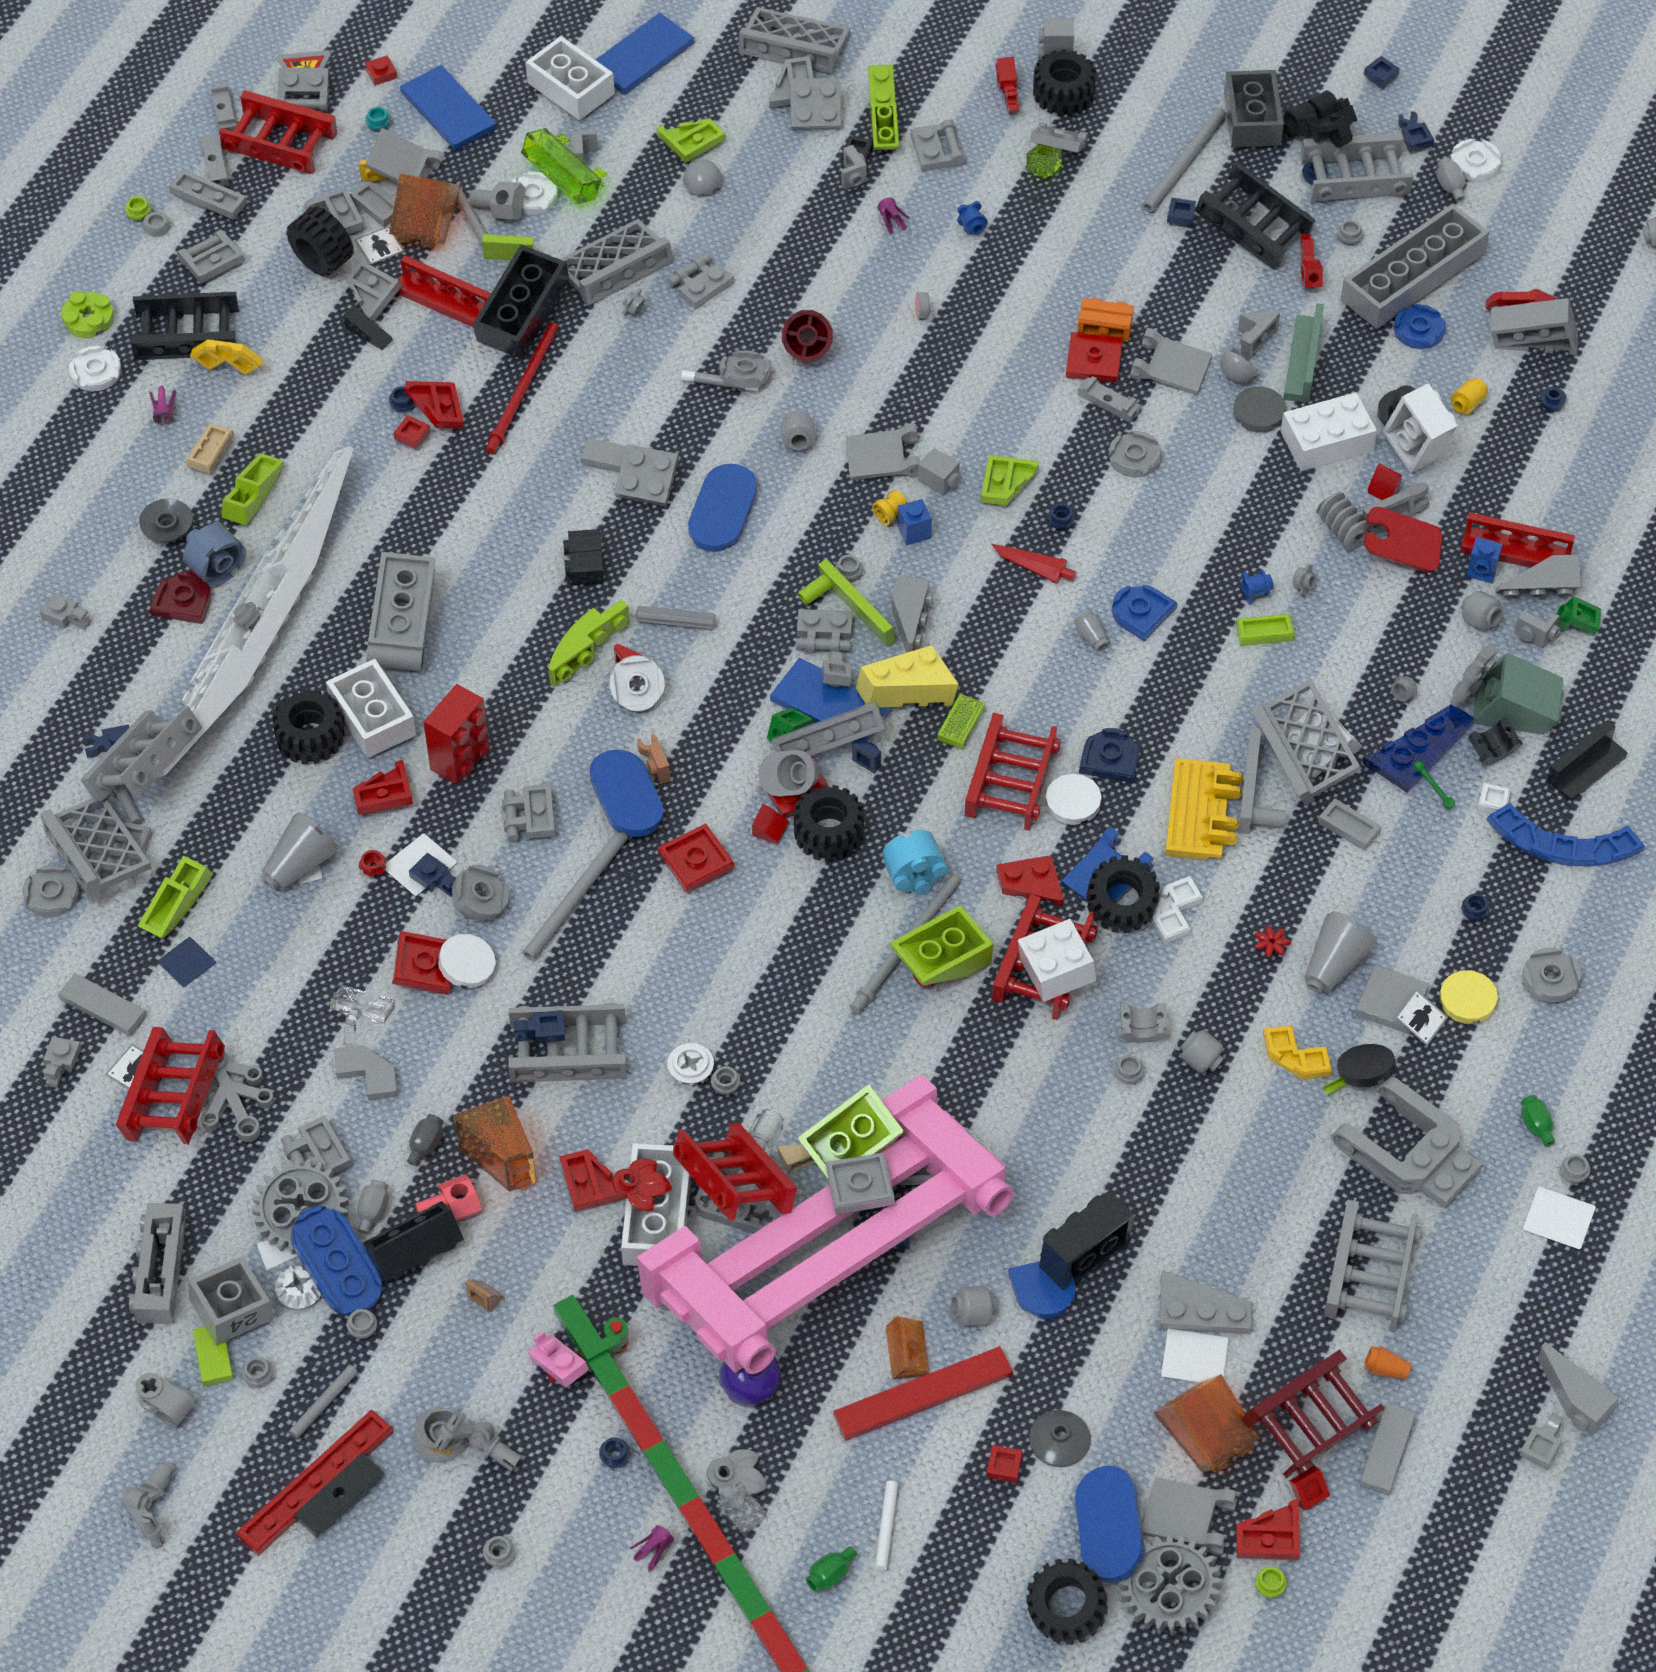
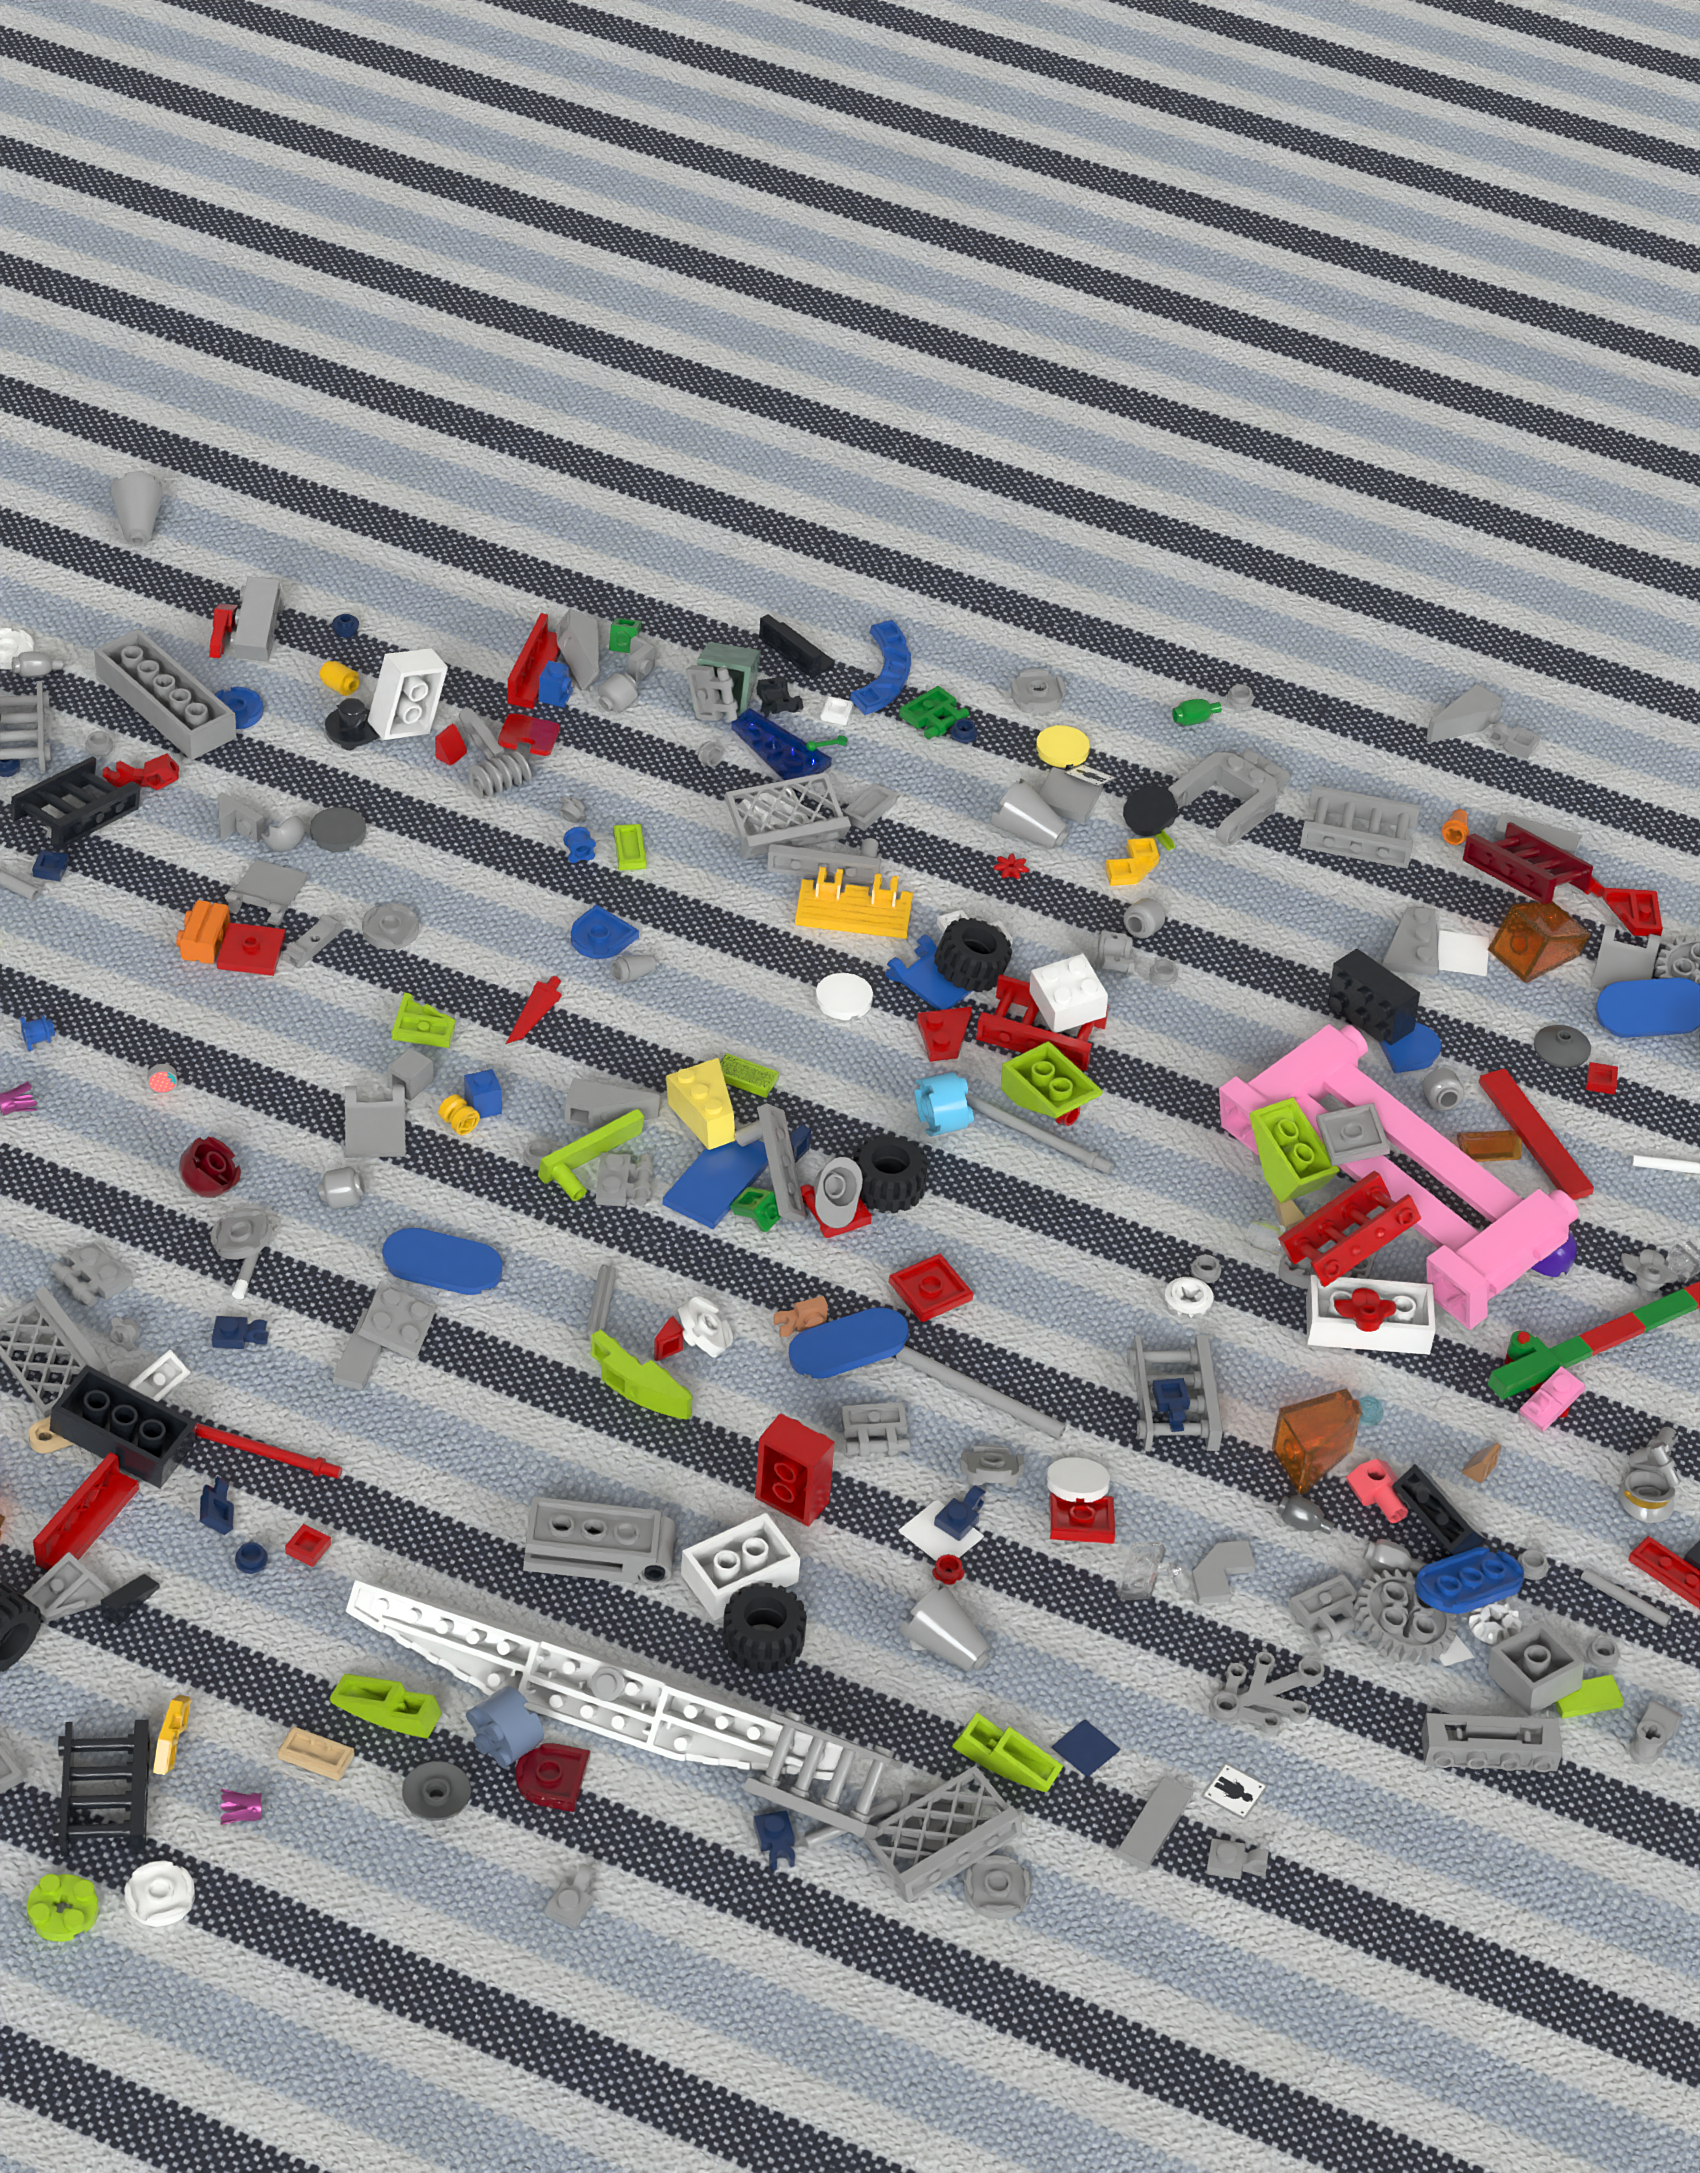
camera: 95 degrees left, 10 degrees down
(152, 1070) = (1280, 1767): red fence -> none
(383, 791) = (846, 1559): red wing -> none
(437, 402) = (267, 1517): red wing -> none
(448, 370) = (215, 1508): none -> dark blue plate
(503, 247) = (16, 1452): lime tile -> none
(546, 1196) = (1371, 1411): none -> clear light blue plate
(585, 556) = (514, 1377): black brick -> none
(587, 330) = (160, 1377): none -> white slope
(587, 1180) = (1339, 1373): red wing -> none
(614, 1444) = (1641, 1359): dark blue plate -> none
(638, 375) = (235, 1331): none -> dark blue plate
(769, 825) = (883, 1231): red slope -> none
(835, 671) = (690, 1160): light grey plate -> none
(991, 754) = (812, 1055): red fence -> none
(1064, 511) = (475, 984): dark blue plate -> none
(1110, 755) = (787, 967): dark blue tile -> none
(1271, 1582) = (1681, 914): lime plate -> none
(1303, 356) = (272, 790): sand green fence -> none
(1328, 431) = (381, 776): white brick -> none
(1505, 874) = (928, 708): none -> green plate
(1559, 1217) = (1287, 716): white sticker -> none

